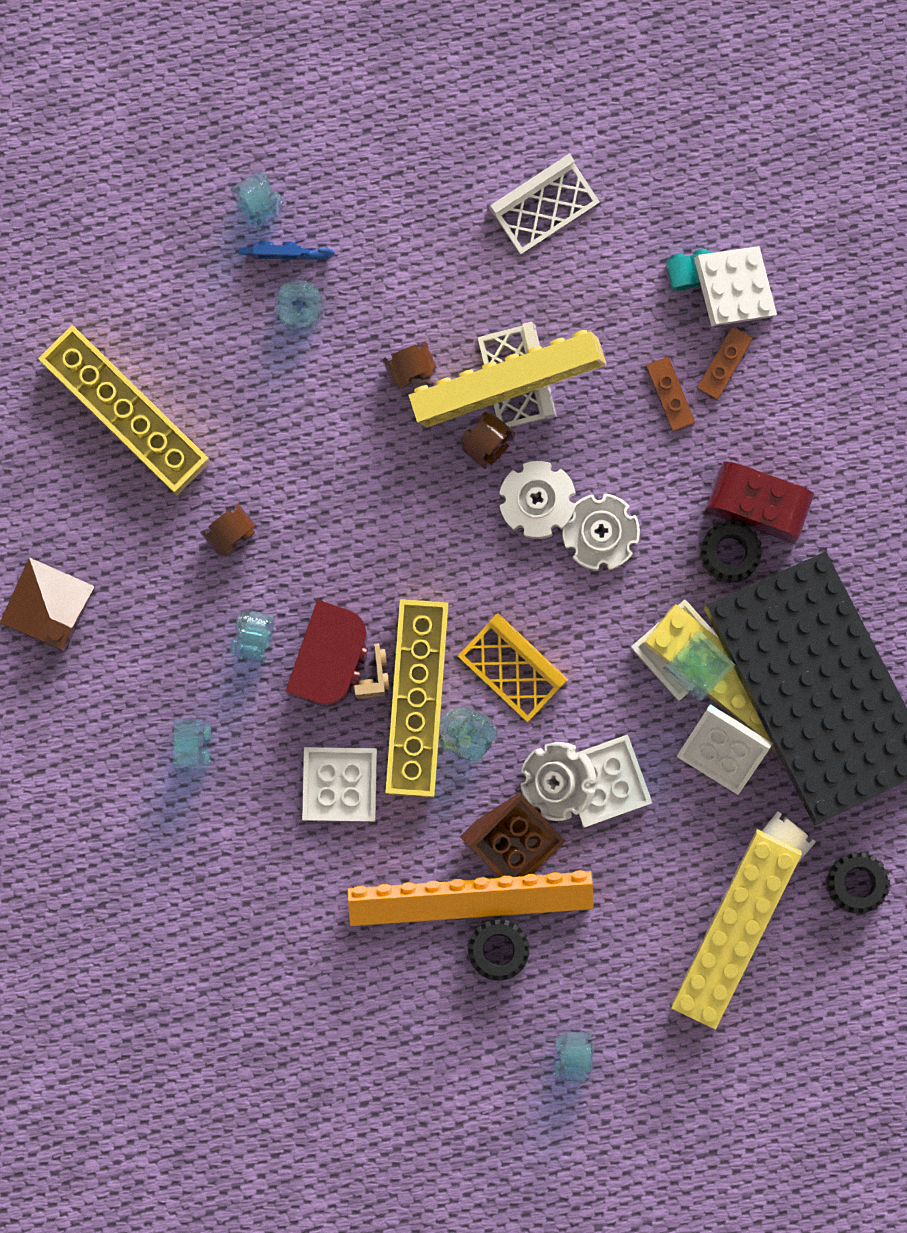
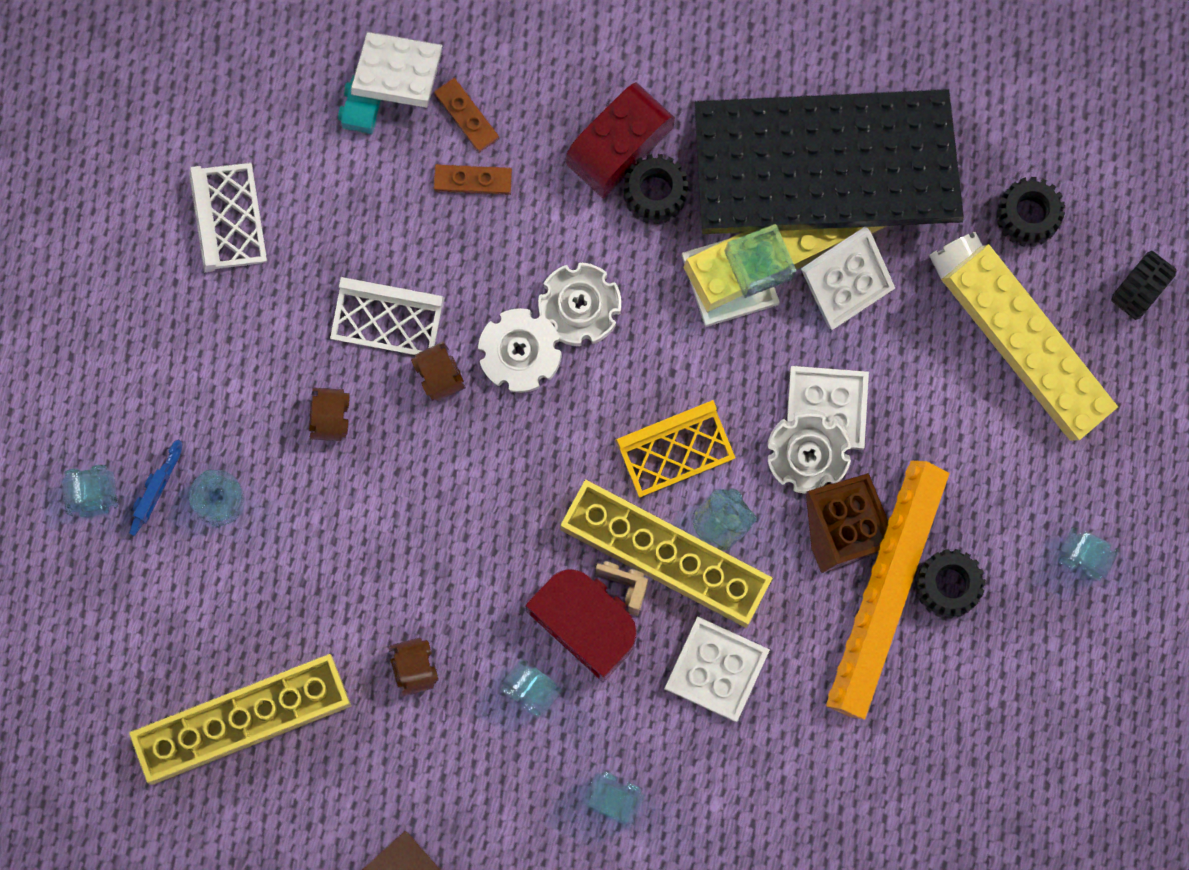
camera: 70 degrees left, 5 degrees down
(507, 379) = (389, 321): light yellow brick -> none
(834, 1007) = (1143, 285): none -> black tyre

